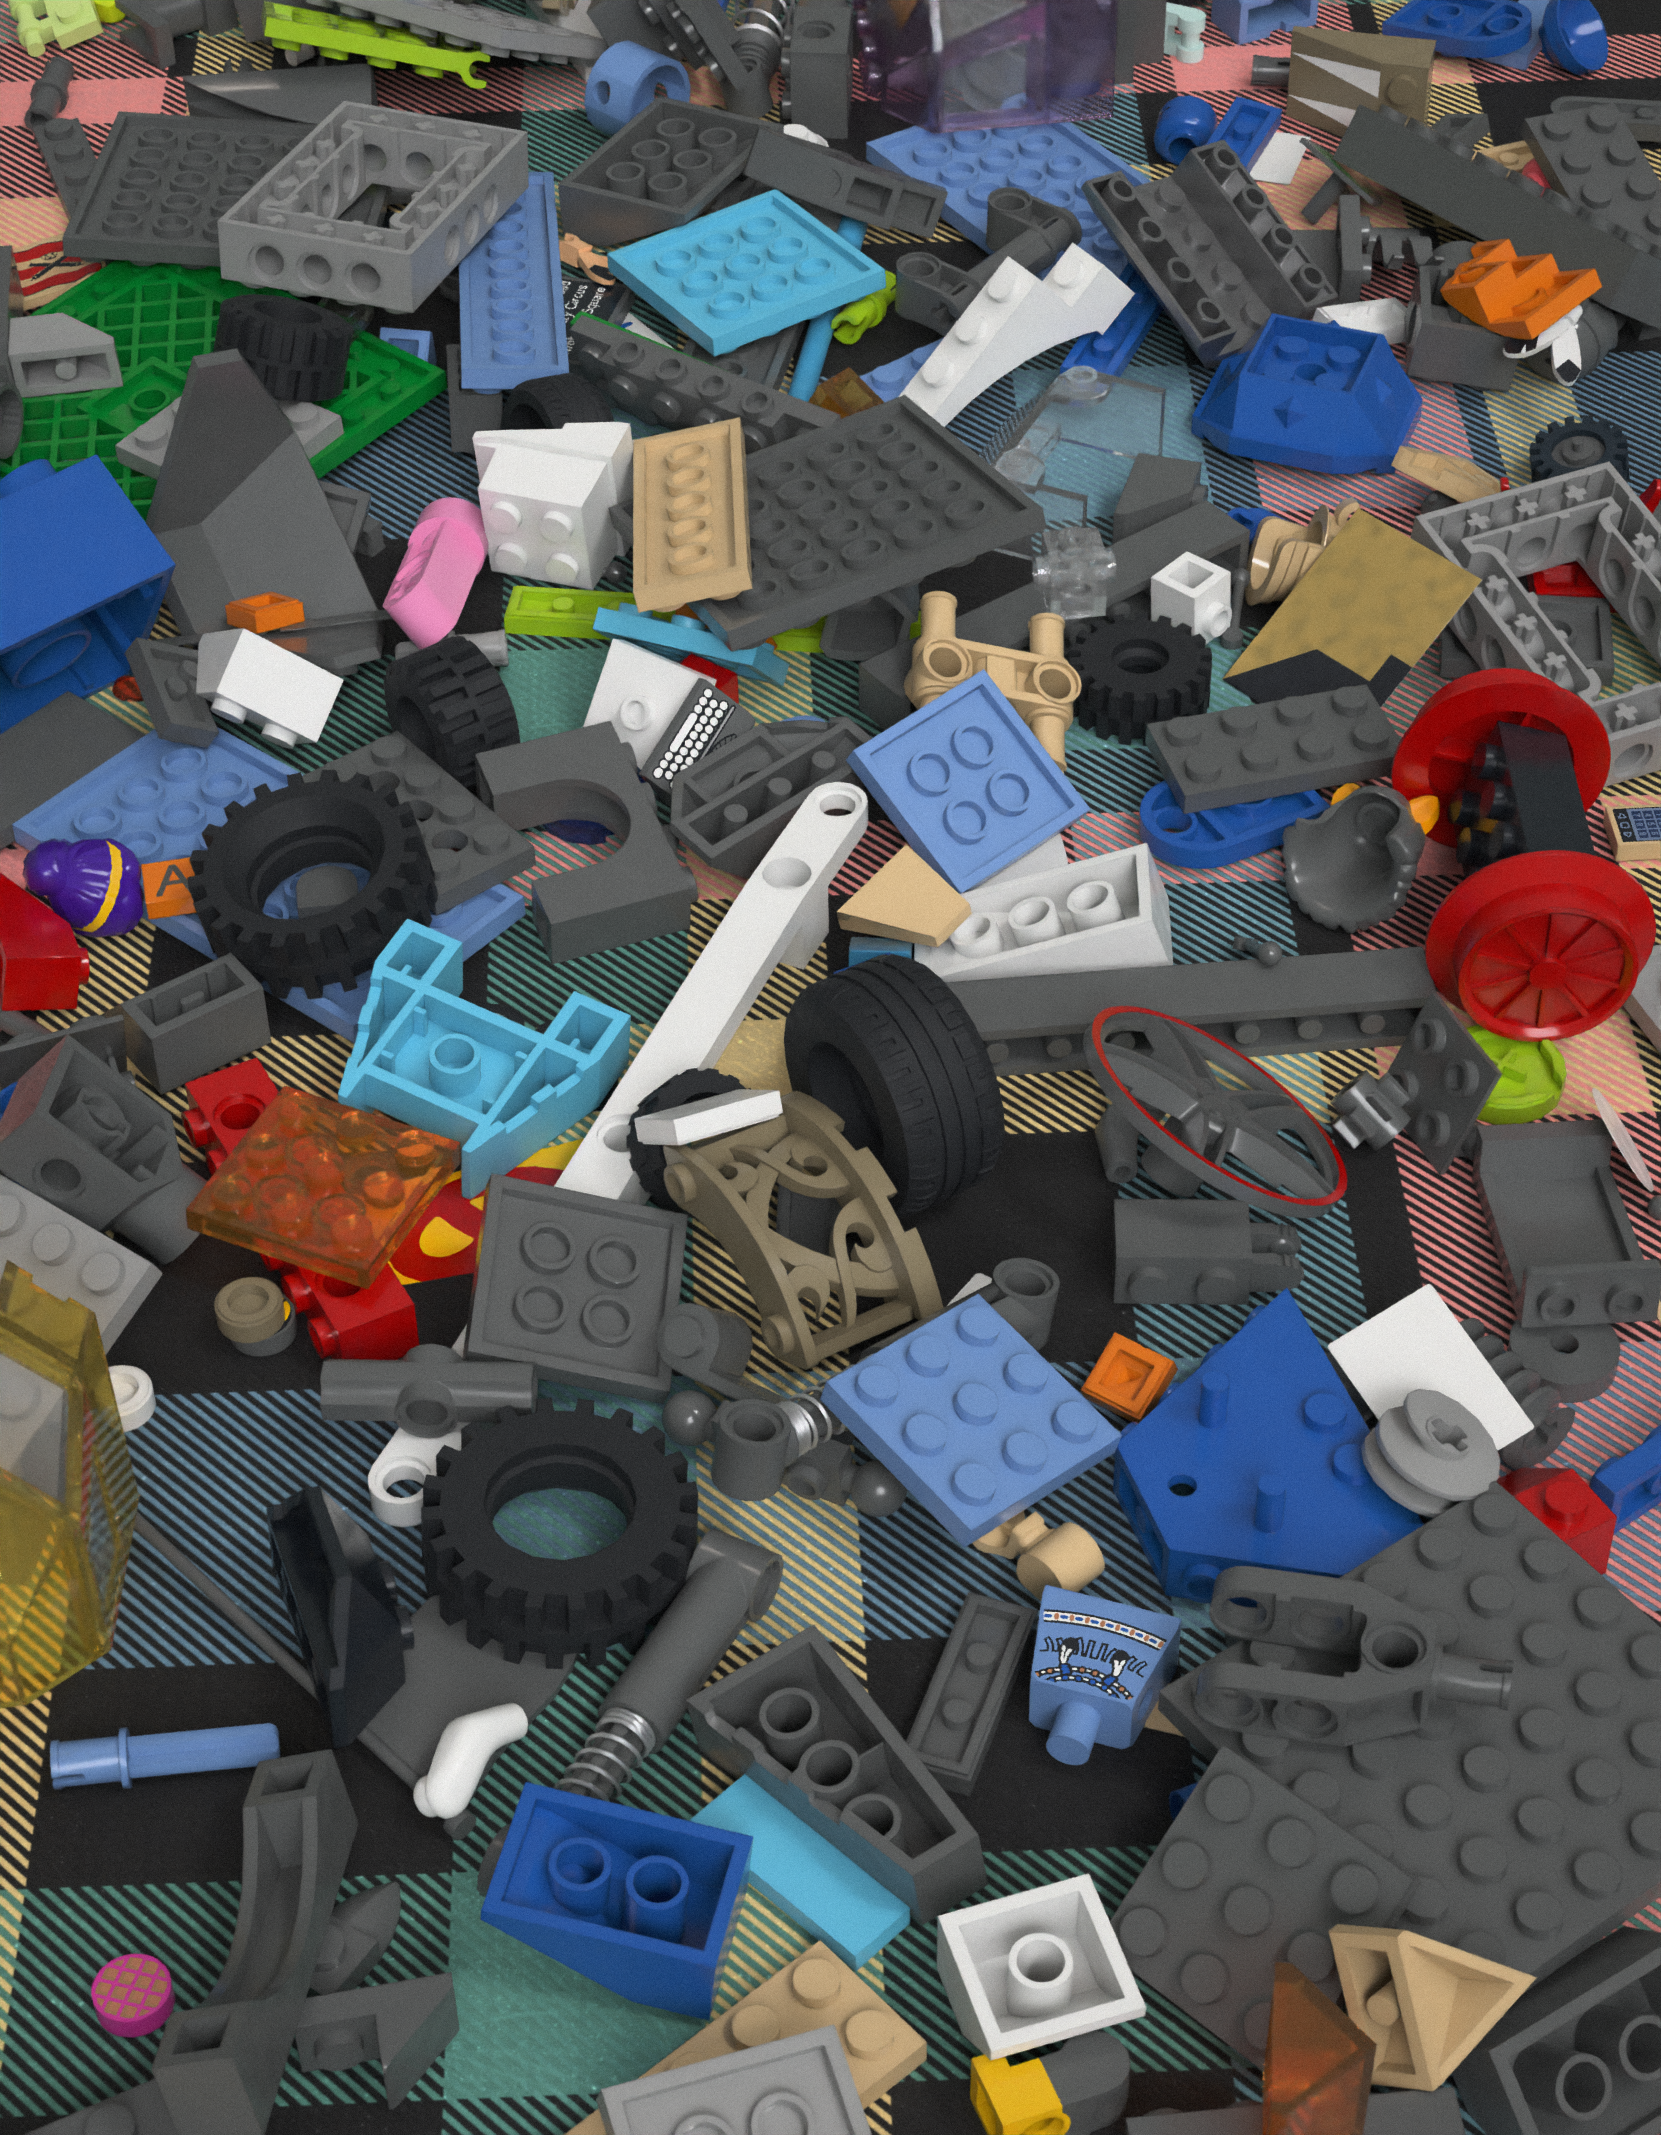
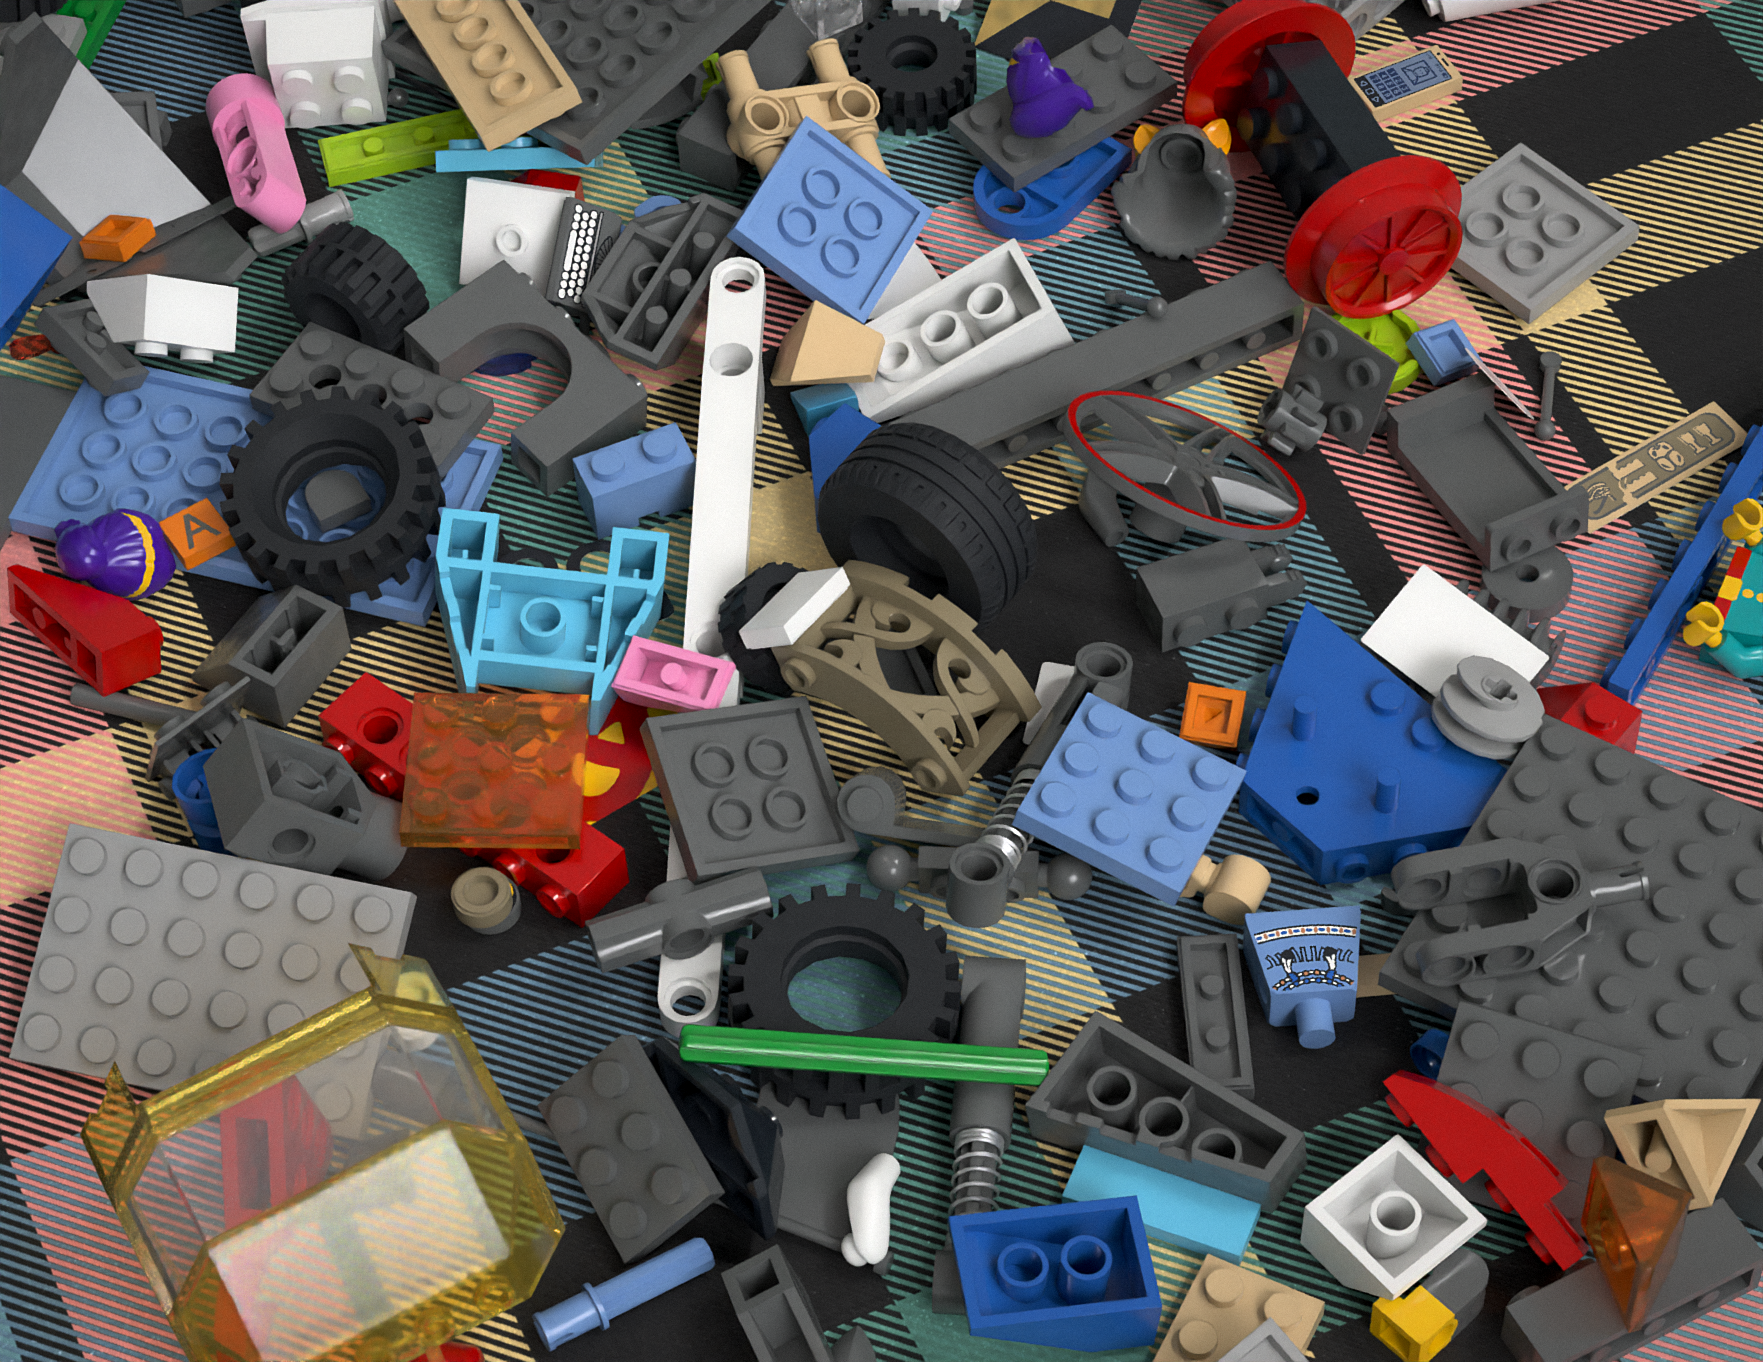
camera: 20 degrees left, 10 degrees up
(240, 1601) = (630, 1149): none -> dark grey plate
(526, 1580) = (862, 1055): none -> green axle
(555, 1151) = (671, 677): none -> bright pink slope
(636, 960) = (635, 479): none -> medium blue brick
(1177, 1914) = (1473, 1138): none -> red slope
(1244, 713) = (1041, 94): none -> dark purple hair
(1570, 1090) = (1442, 352): none -> medium blue tile

